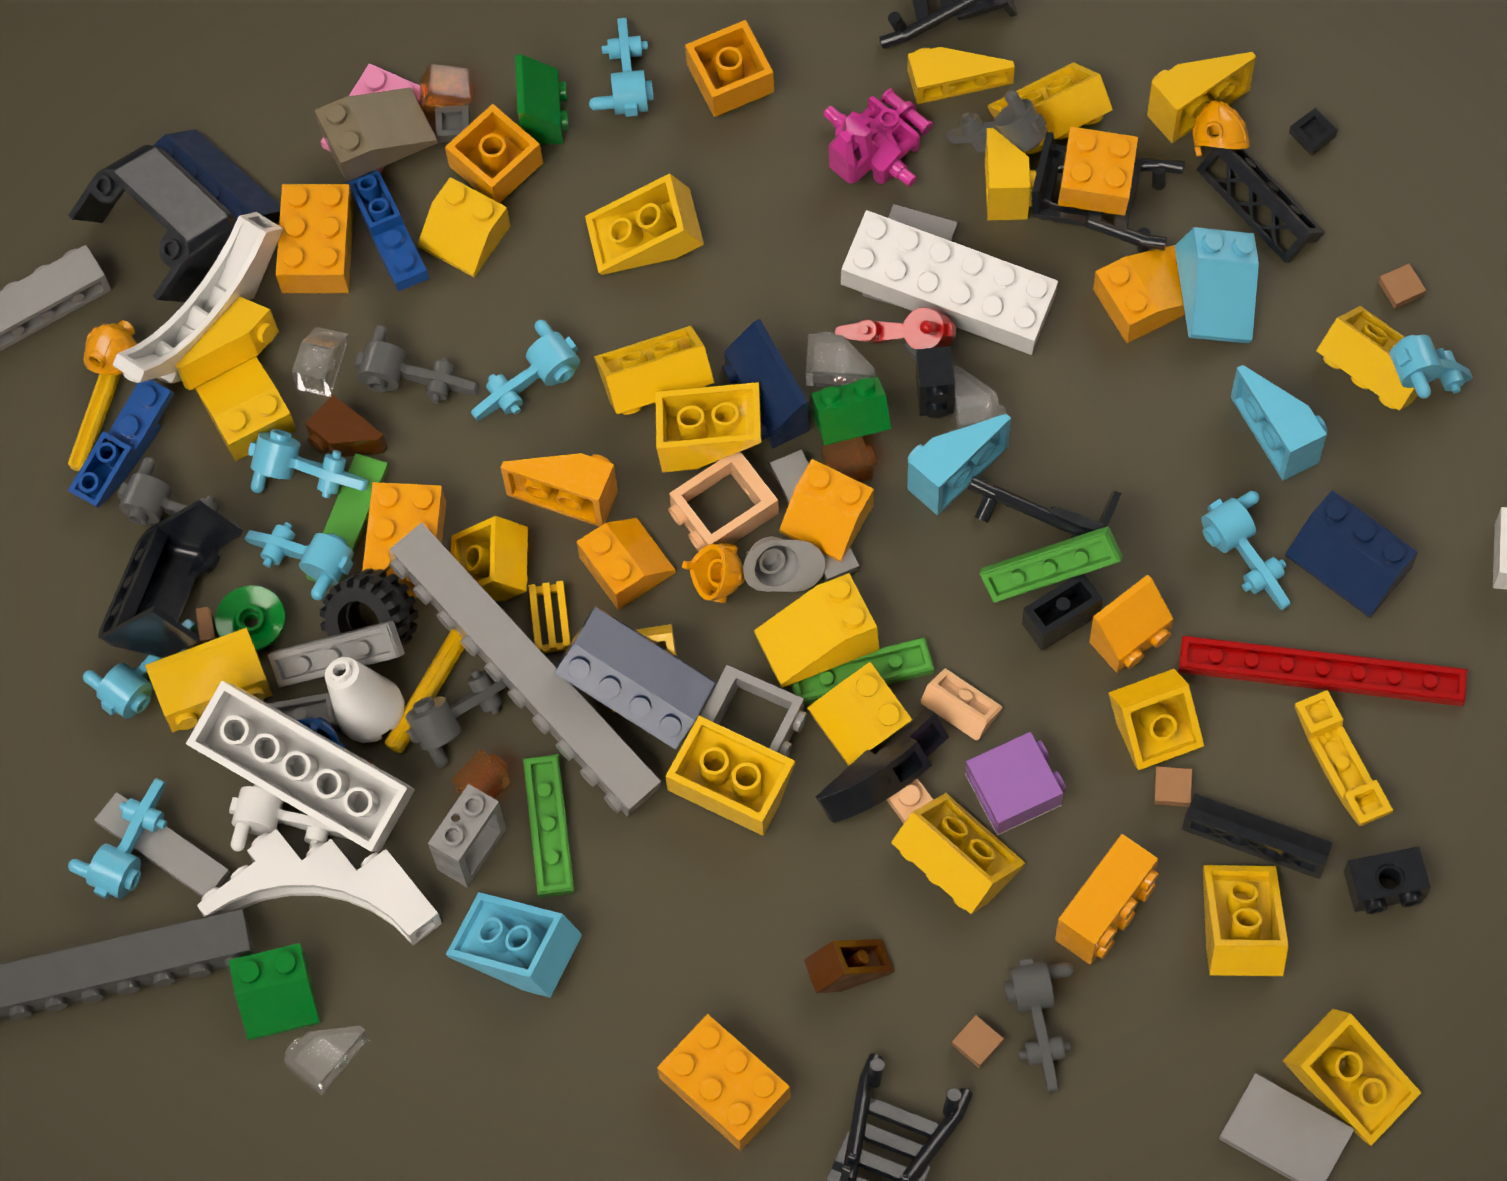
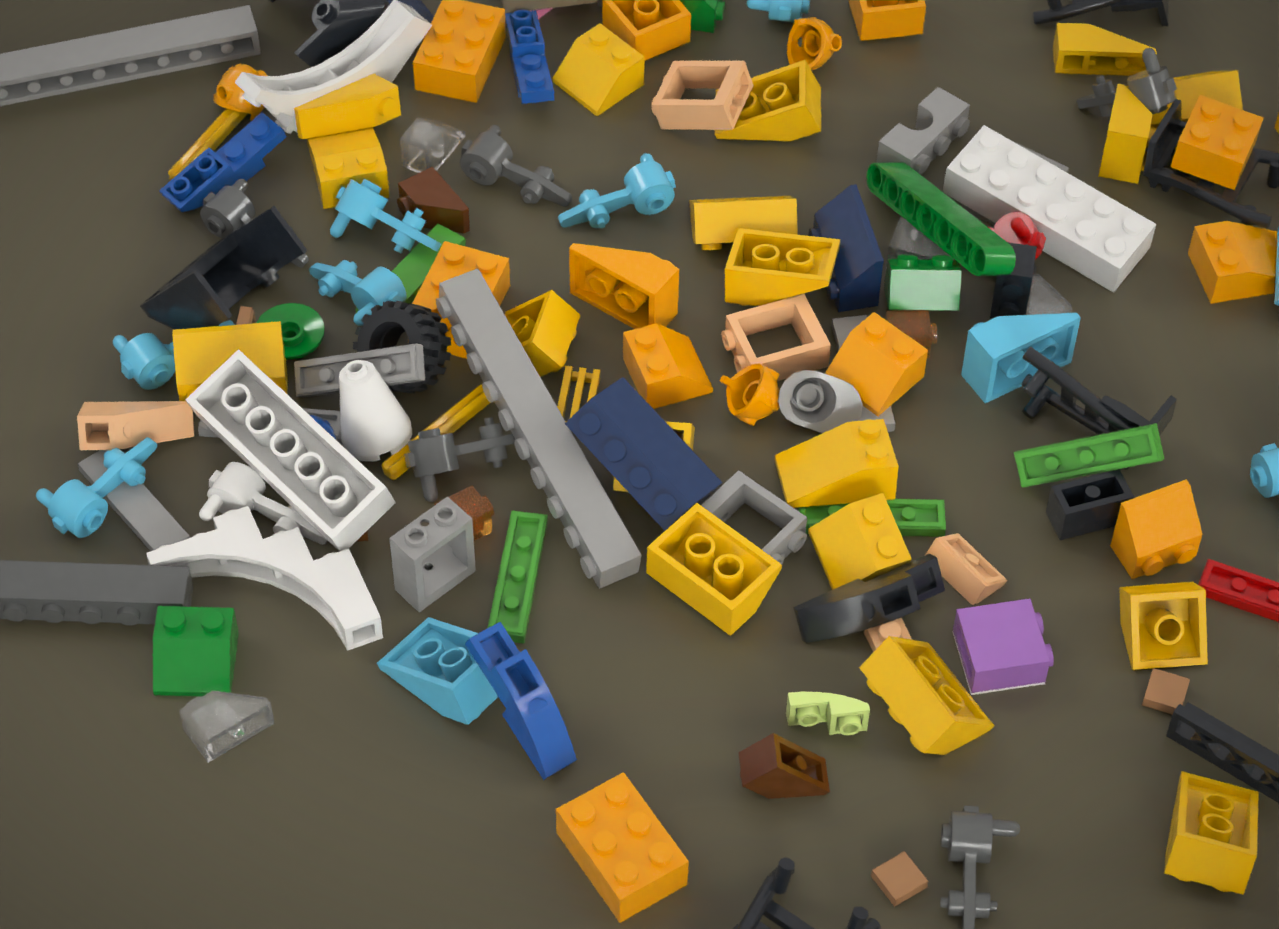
camera: 10 degrees right, 15 degrees down
(131, 766) = (128, 423): none -> light nougat slope
(597, 963) = (526, 697): none -> blue slope
(606, 237) = (697, 114): none -> light nougat window
(671, 143) = (817, 42): none -> light orange helmet
(797, 245) = (939, 122): none -> light grey arch
(849, 333) = (941, 219): none -> green beam
(876, 139) = (1008, 84): dark pink piece -> none
(886, 894) = (840, 712): none -> yellowish green slope
(1107, 900) = (1071, 771): light orange brick -> none

